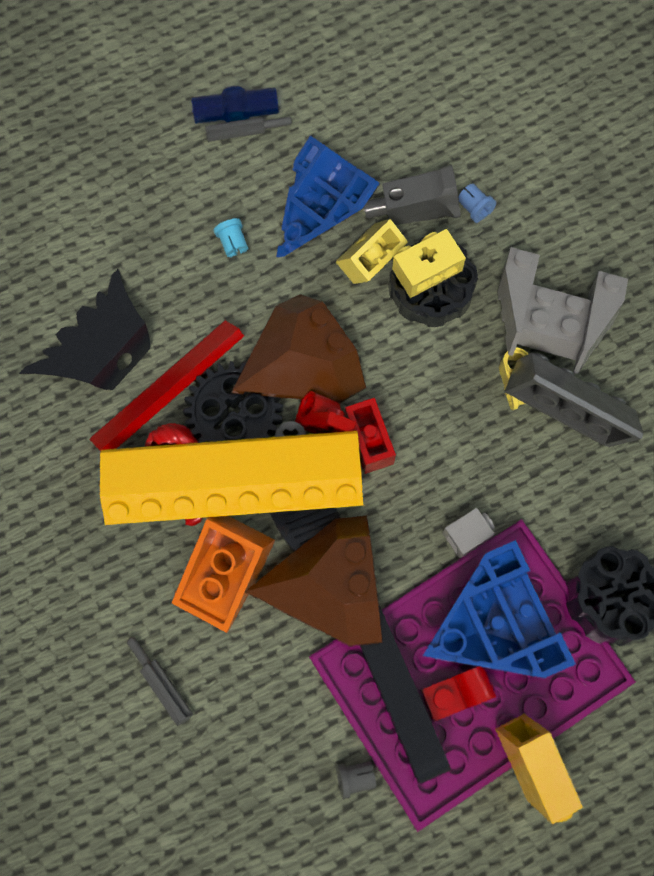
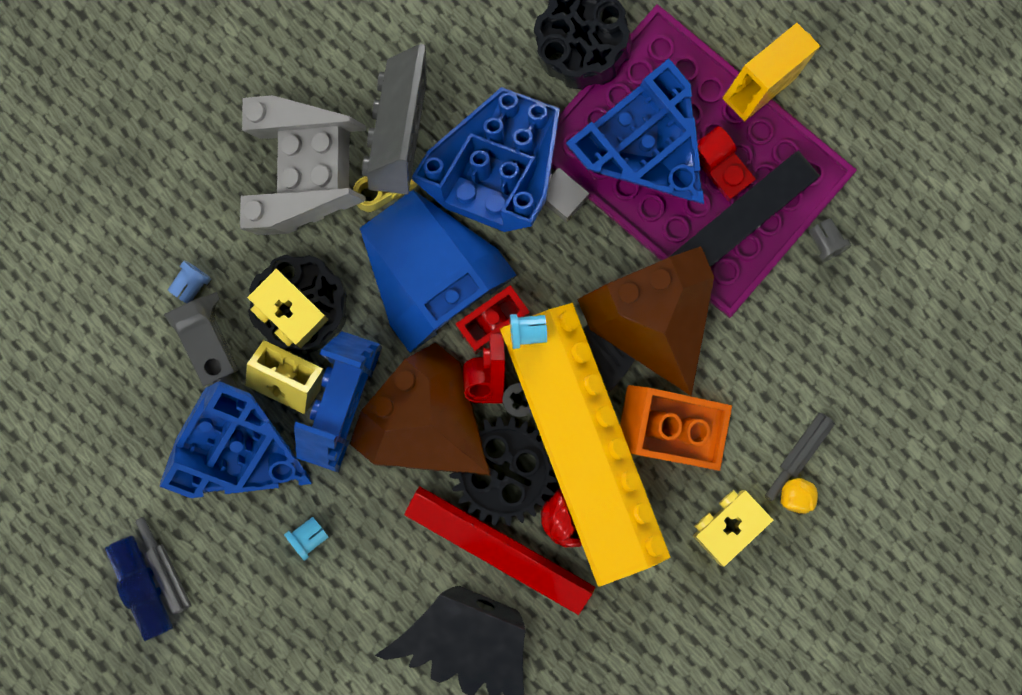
camera: 105 degrees left, 10 degrees up
(101, 584) = (751, 522): none -> light yellow brick
(121, 667) = (799, 496): none -> yellow piece
(344, 284) = (333, 415): none -> blue wedge
(346, 447) = (527, 330): none -> medium azure bush
(435, 400) = (428, 267): none -> blue wedge
(517, 481) = (495, 162): none -> blue wedge

